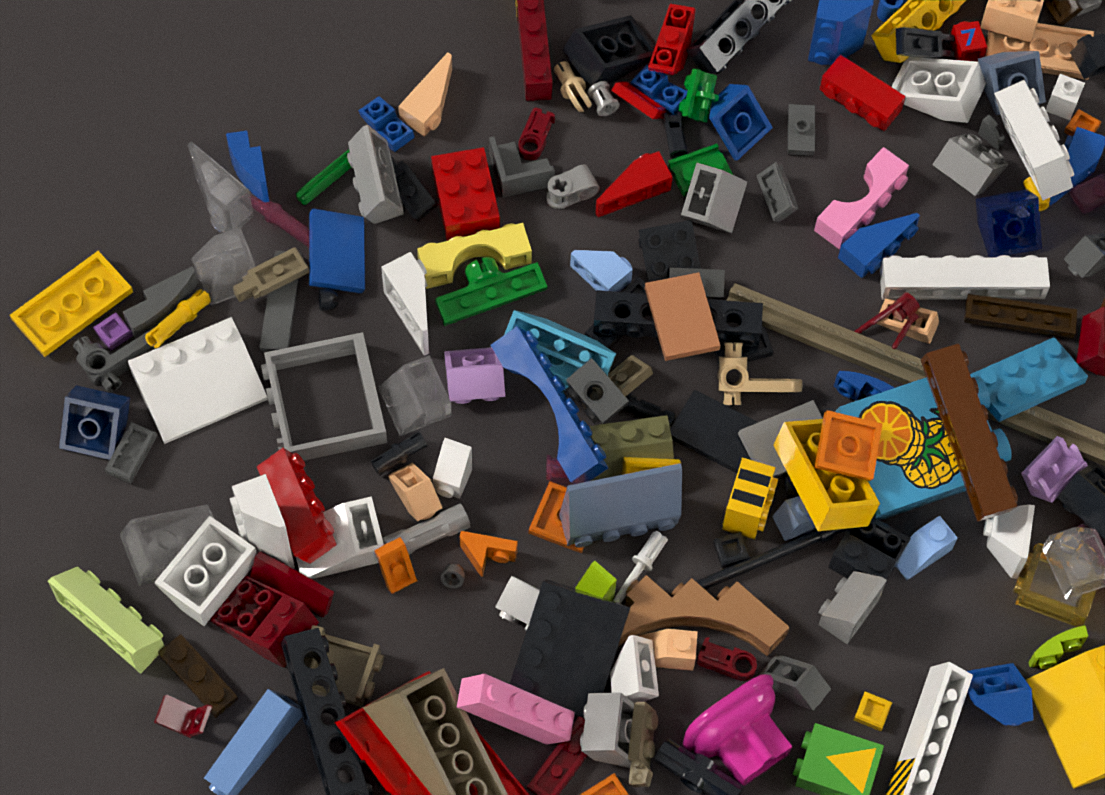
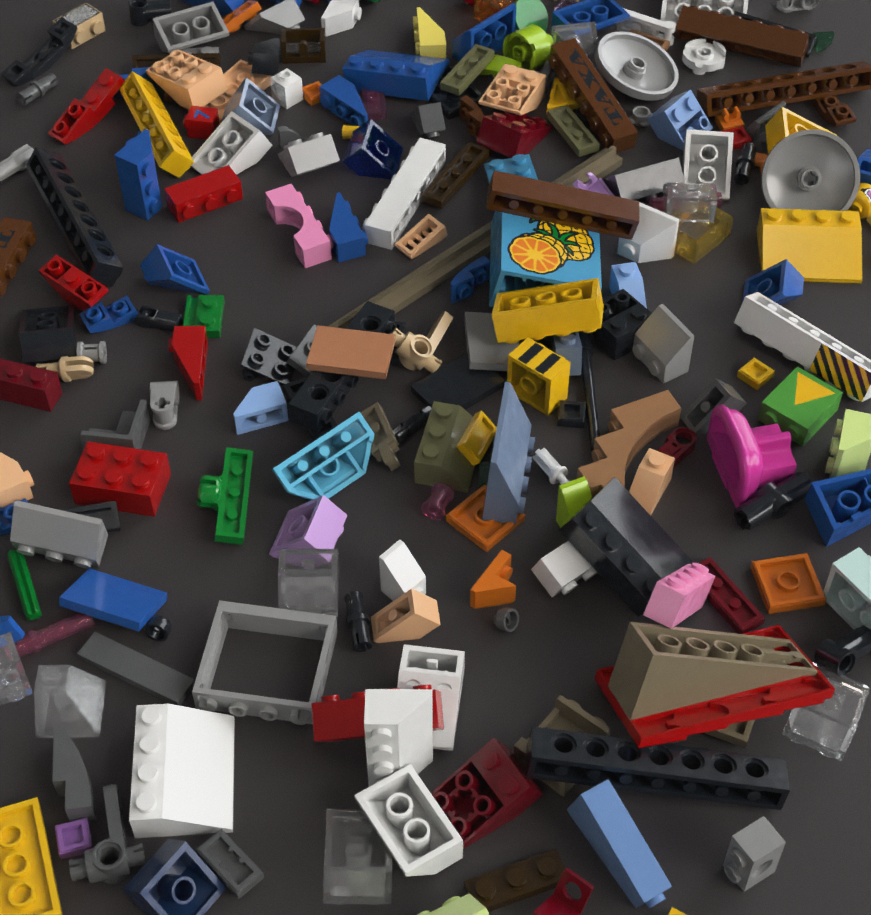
camera: 65 degrees left, 15 degrees down
(185, 312) = (100, 754): yellow pin -> none
(271, 275) = (107, 660): dark tan hinge -> none
(292, 583) = (452, 755): dark red tile -> none
(395, 565) = (481, 653): orange plate -> none
(405, 289) = (211, 550): white slope -> none
(444, 524) = (452, 619): light grey axle -> none
(506, 245) = (179, 521): light yellow arch -> none
(536, 132) = (88, 411): dark red piece -> none
(576, 451) = (440, 467): blue arch -> none
(591, 376) = (399, 429): dark grey brick -> none
(607, 728) = (715, 541): light grey slope -> none
(635, 670) = (668, 510): white slope -> none
(639, 100) = (111, 328): red tile -> none
(641, 744) = (736, 530): dark tan hinge -> none
(699, 95) = (141, 282): green hips -> none
(713, 198) = (238, 310): light grey slope -> none
(777, 192) = (259, 272): dark grey plate -> none
(801, 130) = (209, 242): dark grey plate -> none
(848, 445) = (541, 274): orange plate -> none
(902, 309) = (416, 230): dark red plant -> none
(923, 43) = (189, 139): black hinge -> none
(1035, 139) = (320, 103): white brick -> none
(1052, 650) = (746, 247): lime slope -> none

